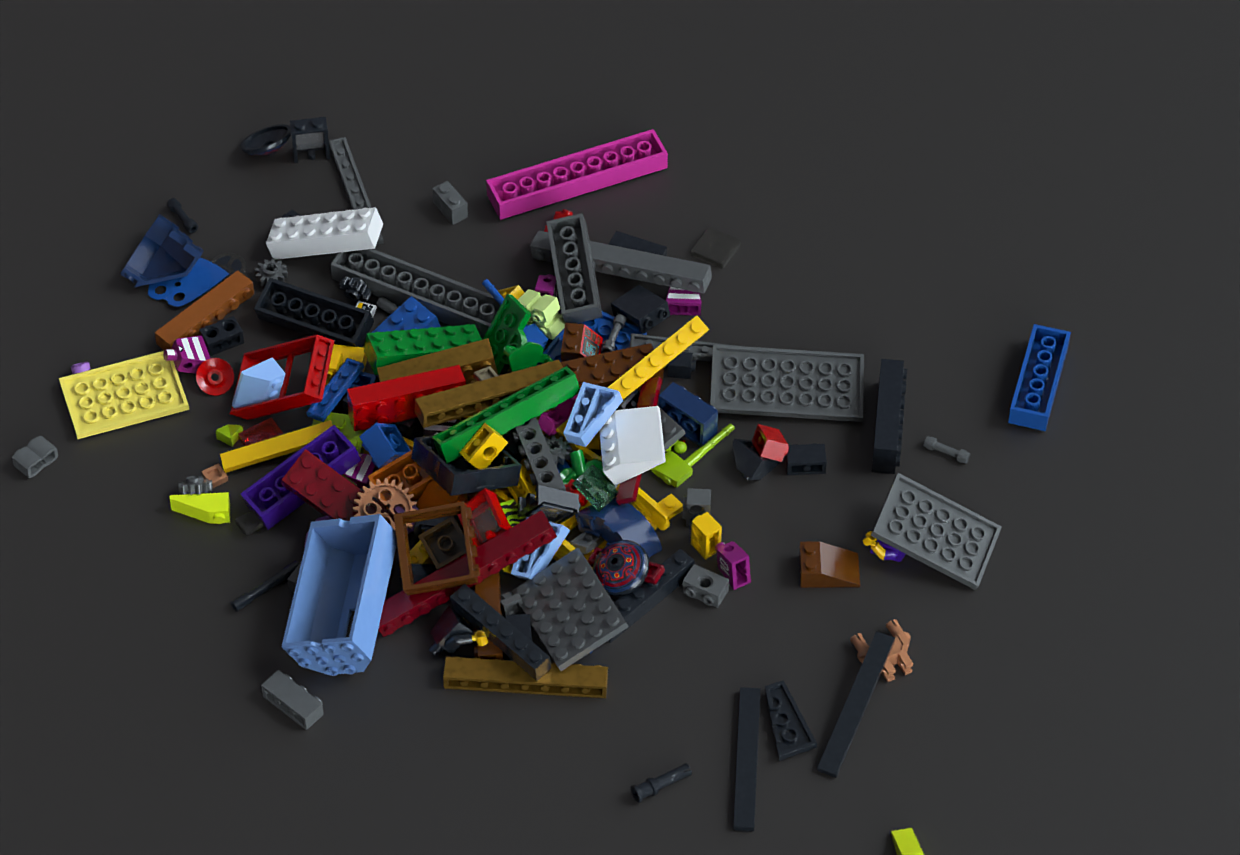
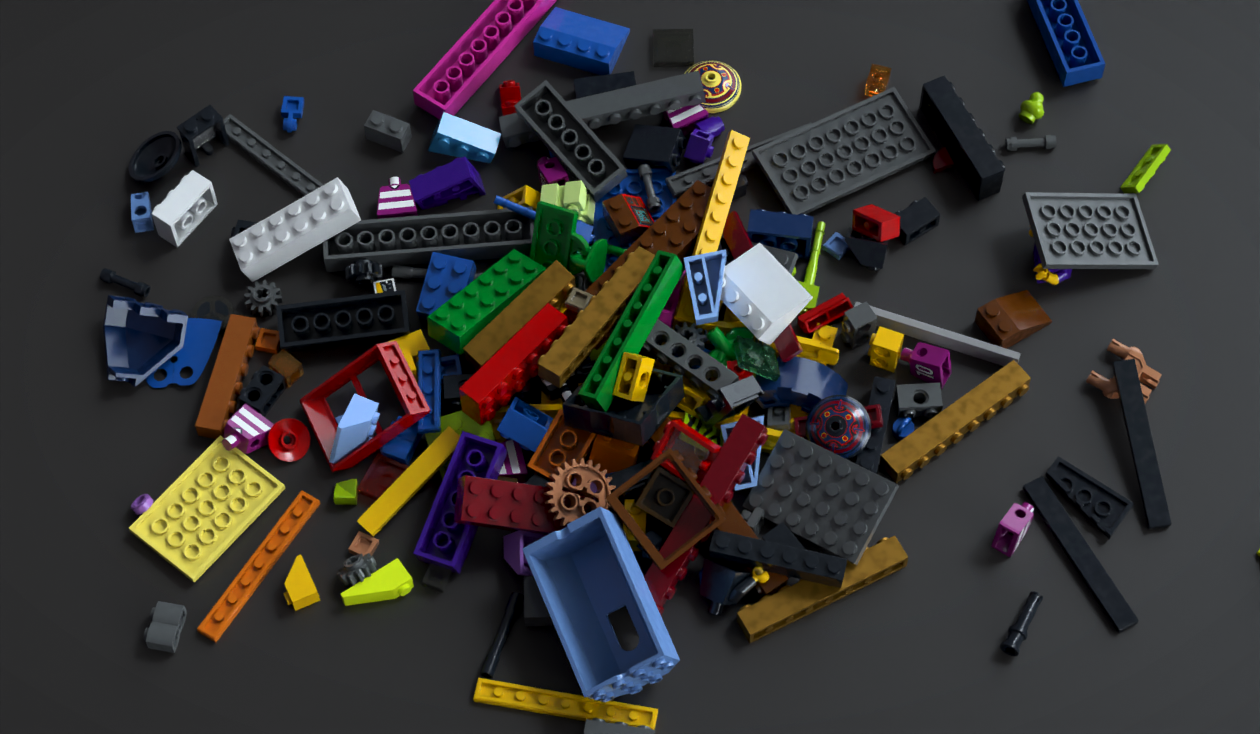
camera: 30 degrees left, 10 degrees up
(131, 451) = (258, 566): none -> orange tile
(148, 477) = (300, 586): none -> yellow slope
(229, 173) = (141, 212): none -> medium blue leg
(250, 303) = (268, 341): none -> orange tile
(251, 328) = (286, 366): none -> clear orange brick
(259, 183) = (184, 208): none -> white brick
(273, 655) = (561, 704): none -> yellow tile
(293, 419) = (403, 445): none -> blue brick
(392, 154) = (292, 108): none -> blue plate
(418, 252) = (396, 200): none -> torso
(465, 258) = (446, 183): none -> dark purple wedge
(501, 234) = (463, 138): none -> wedge
(646, 208) = (580, 41): none -> blue slope
(674, 321) = (699, 146): none -> dark purple brick
(678, 488) = (824, 313): none -> red piece
(679, 601) = (902, 427): none -> blue tile
(691, 312) = (711, 125): none -> dark purple brick
(705, 710) = (1015, 521): none -> magenta torso
(722, 615) = (955, 421): none -> pearl gold brick
(727, 290) = (721, 91): none -> dish
(727, 448) = (836, 246): none -> medium blue tile
(759, 550) = (944, 337): none -> light grey tile
(858, 344) = (877, 80): none -> clear orange brick
(863, 428) = (942, 161): none -> dark red tile
(966, 425) = (1032, 108): none -> lime animal
(1025, 513) = (1145, 168): none -> lime plate

